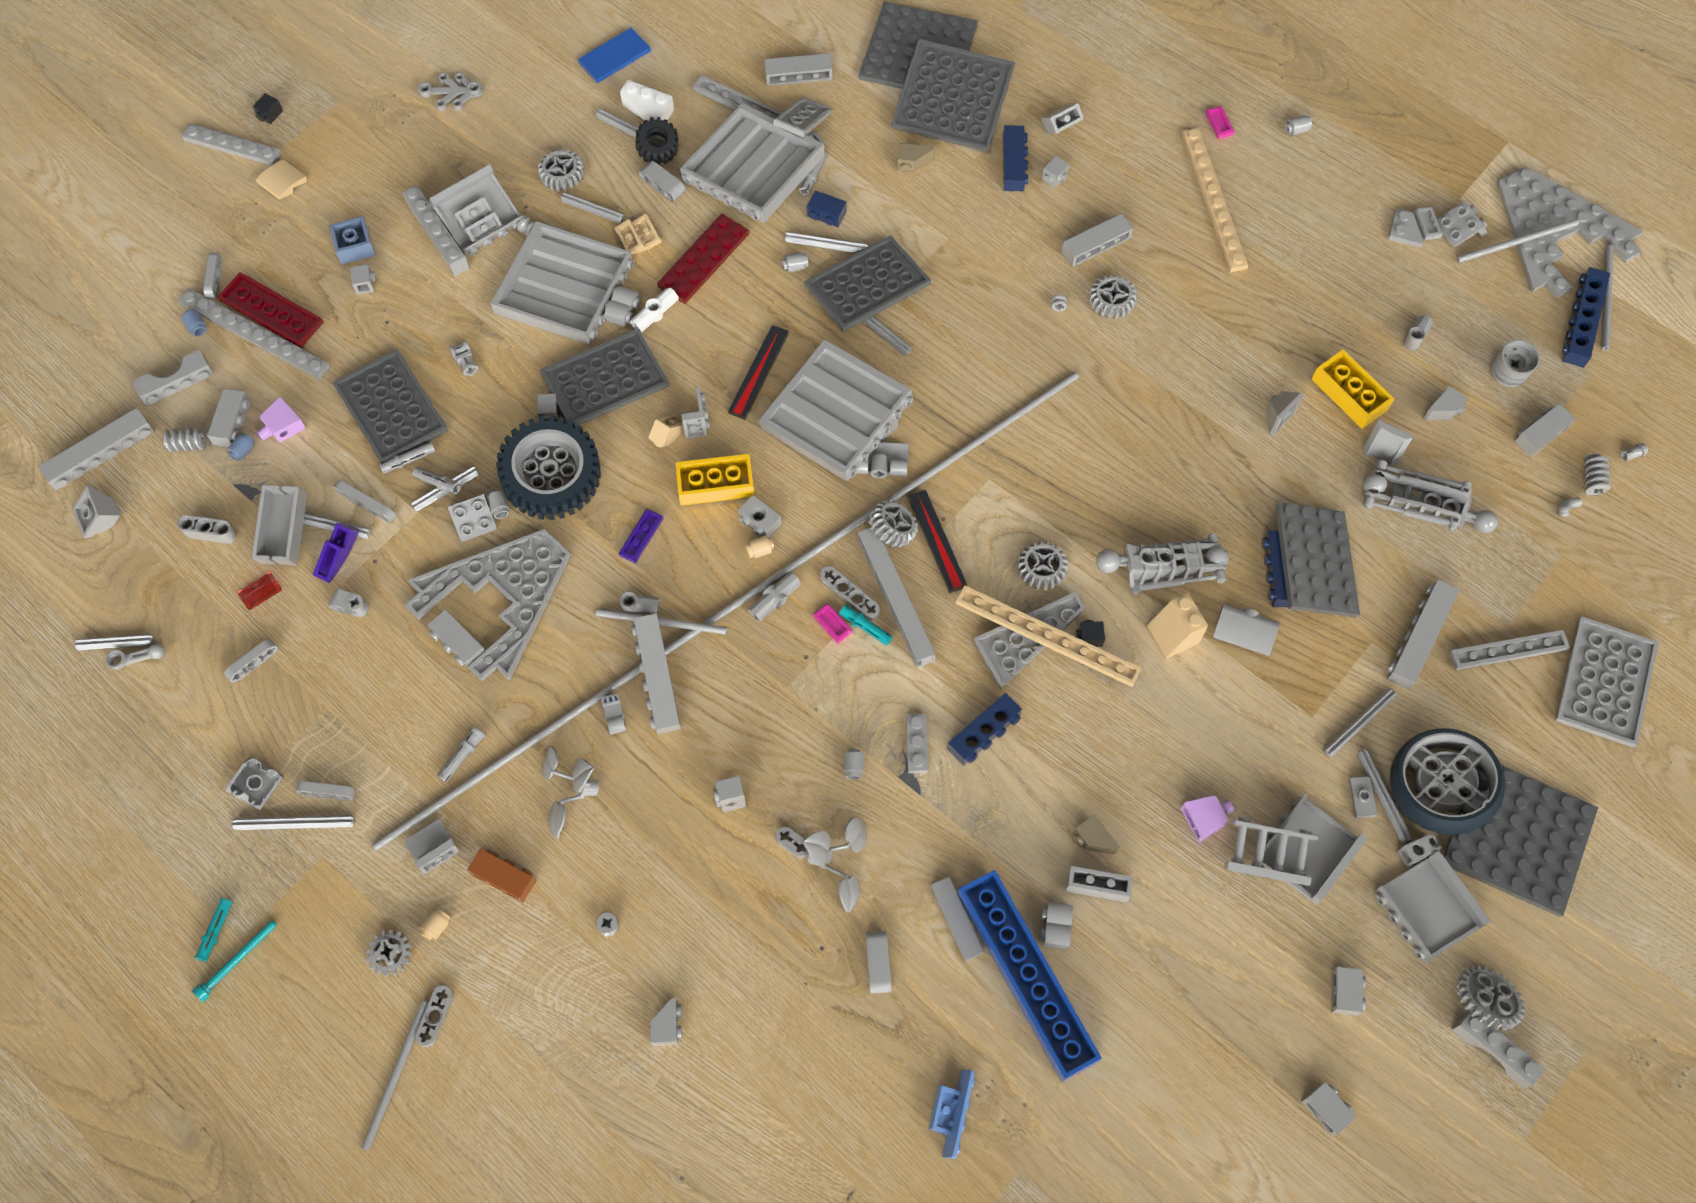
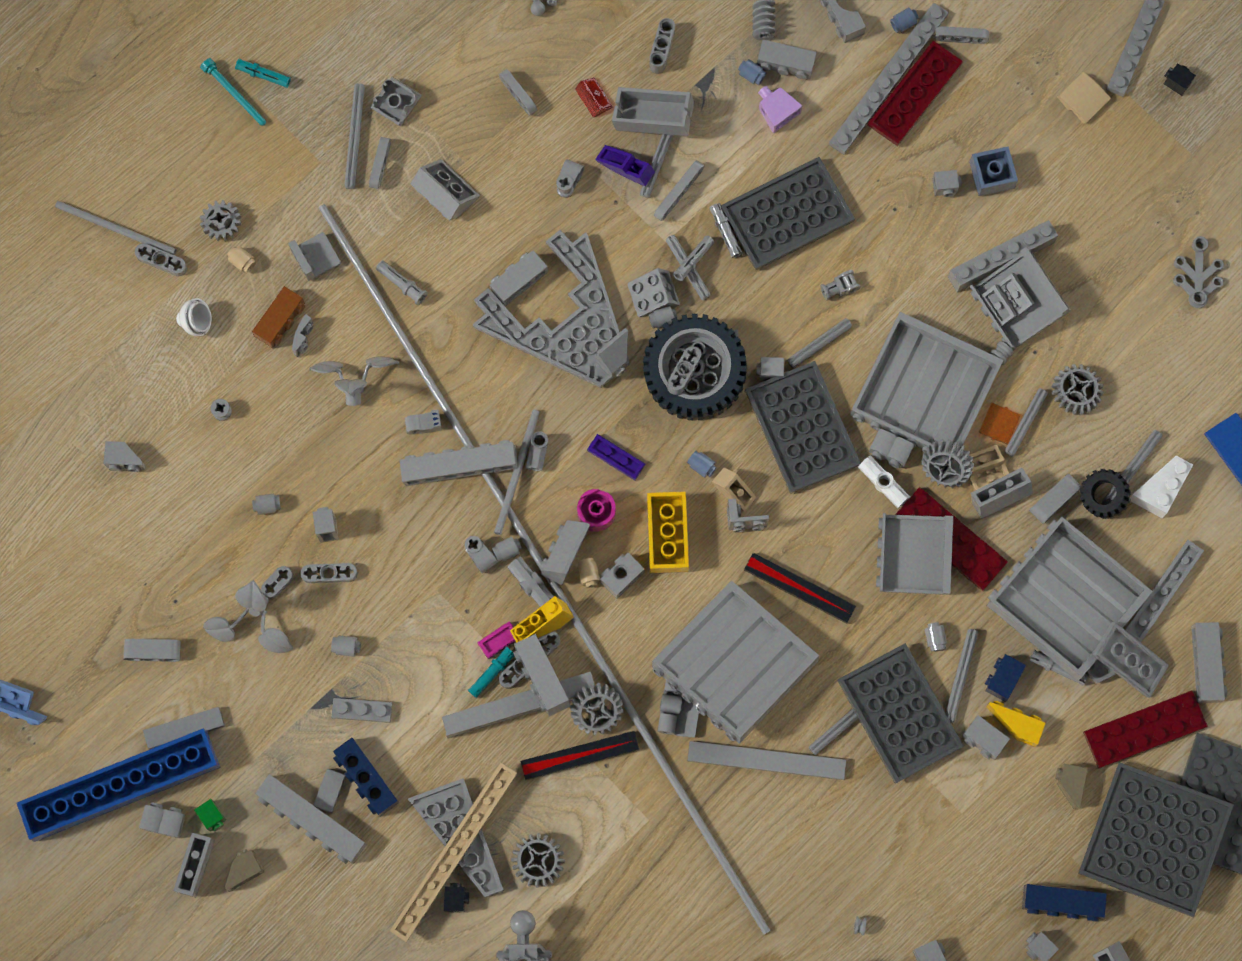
camera: 95 degrees right, 10 degrees up
(358, 722) = (444, 189): none -> light grey slope
(503, 965) = (195, 317): none -> white piece
(520, 371) = (819, 343): none -> light grey axle
(527, 849) = (300, 341): none -> light grey slope
(539, 535) = (613, 355): none -> light grey slope
(559, 476) = (684, 378): none -> light grey beam
(594, 227) = (999, 423): none -> clear orange piece
(641, 255) = (959, 465): none -> light grey gear
(645, 458) = (702, 464): none -> sand blue brick
(660, 217) = (1001, 493): none -> light grey brick
(697, 543) = (600, 500): none -> dark pink brick
(709, 862) = (266, 504): none -> light grey brick
(721, 277) = (915, 554): none -> light grey panel
(740, 563) = (564, 550): none -> light grey slope
(741, 622) = (506, 549): none -> light grey brick
(750, 645) = (481, 556): none -> light grey piece
(782, 777) = (343, 568): none -> light grey beam
(813, 581) = (544, 620): none -> yellow slope
(859, 112) = (1145, 729): none -> dark red plate
(867, 570) = (543, 678): none -> light grey brick
(868, 196) = (1020, 726): none -> yellow slope
(881, 220) = (985, 738): none -> light grey brick
(922, 388) = (766, 760): none -> light grey tile
(1002, 764) = (329, 790): none -> light grey tile
(1033, 777) = (311, 819): none -> light grey brick
(1044, 876) = (210, 815): none -> green brick

